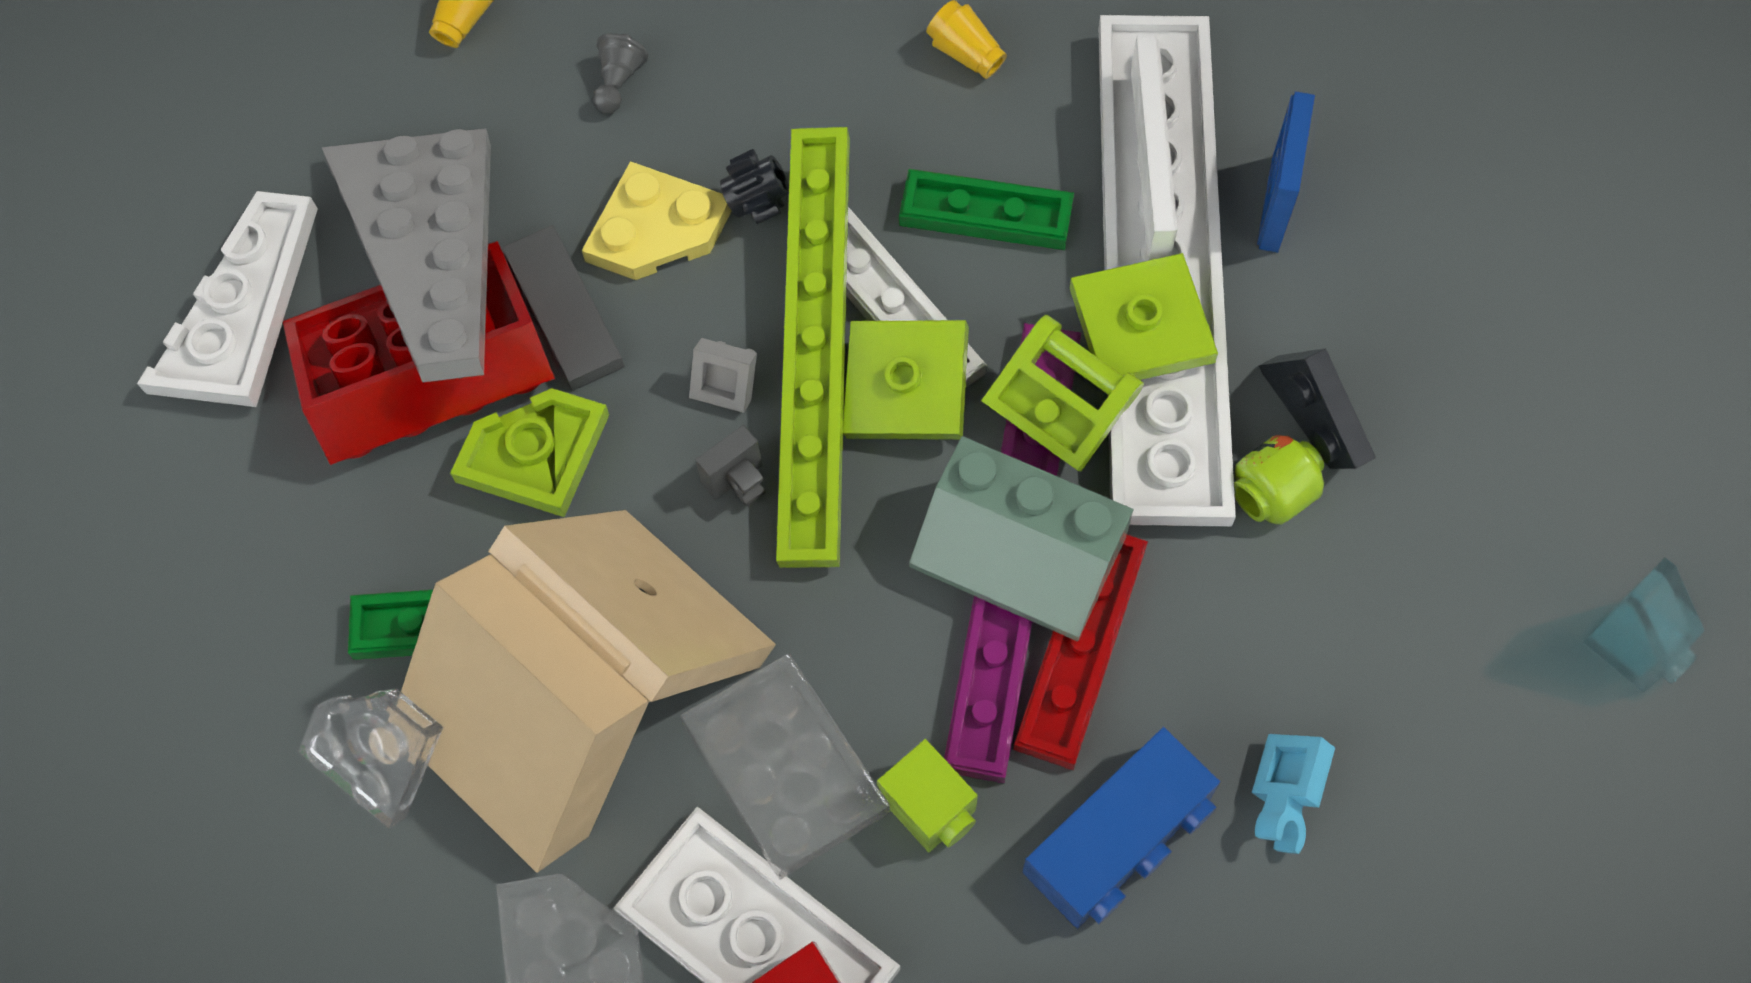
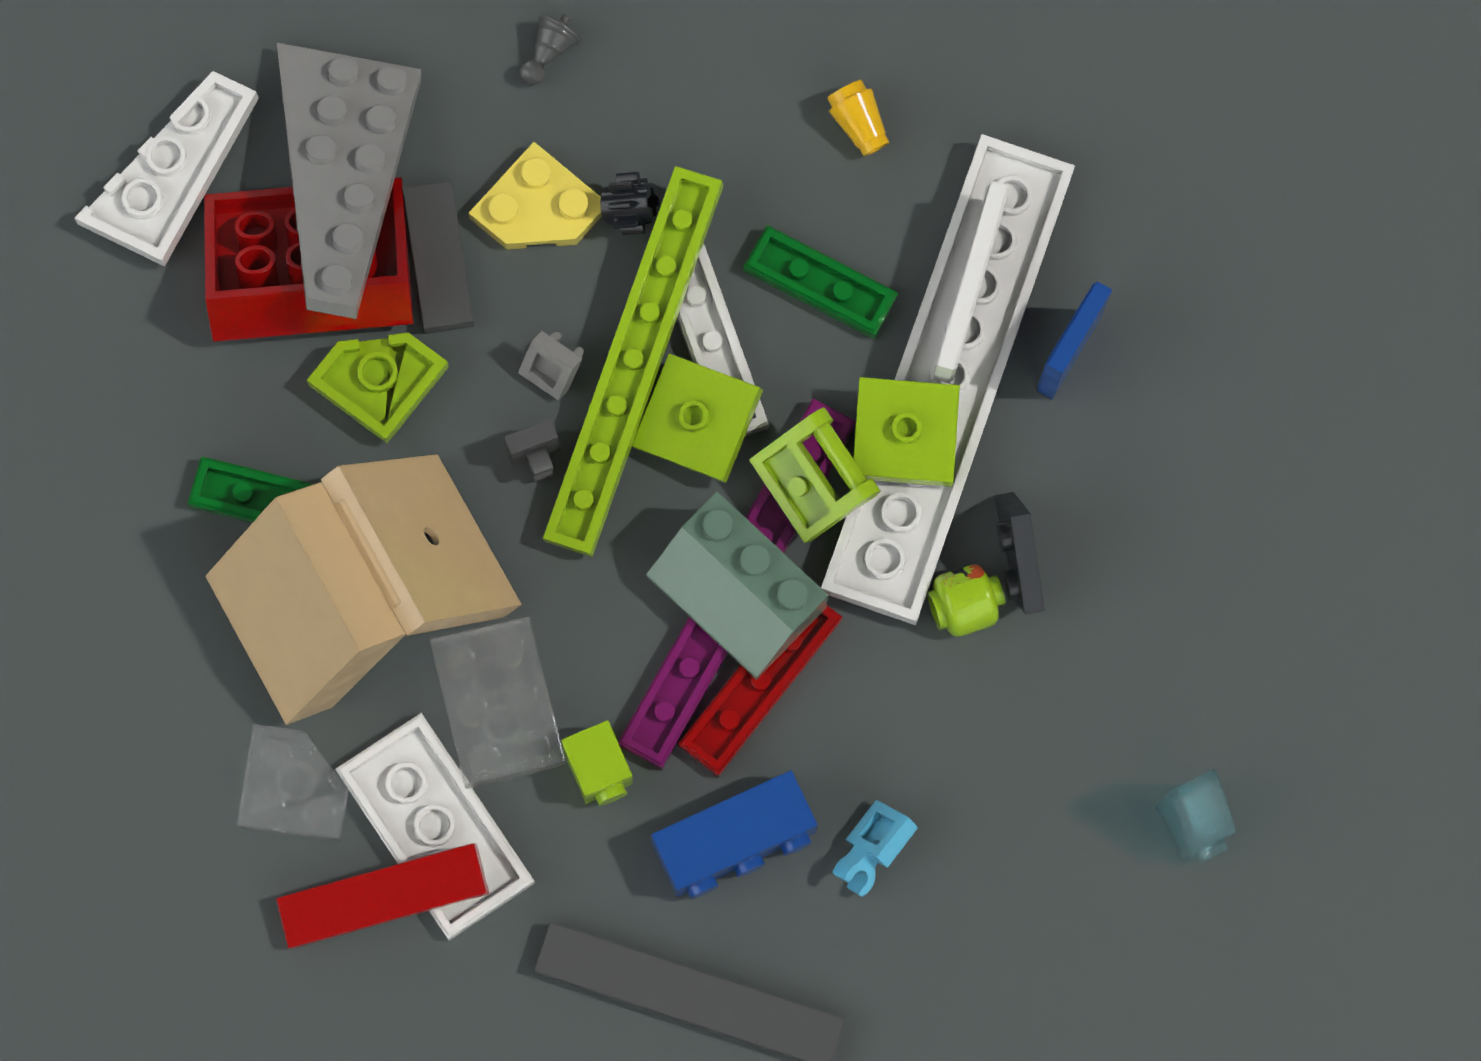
camera: 10 degrees right, 10 degrees up
(373, 749) = (188, 590): clear plate -> none

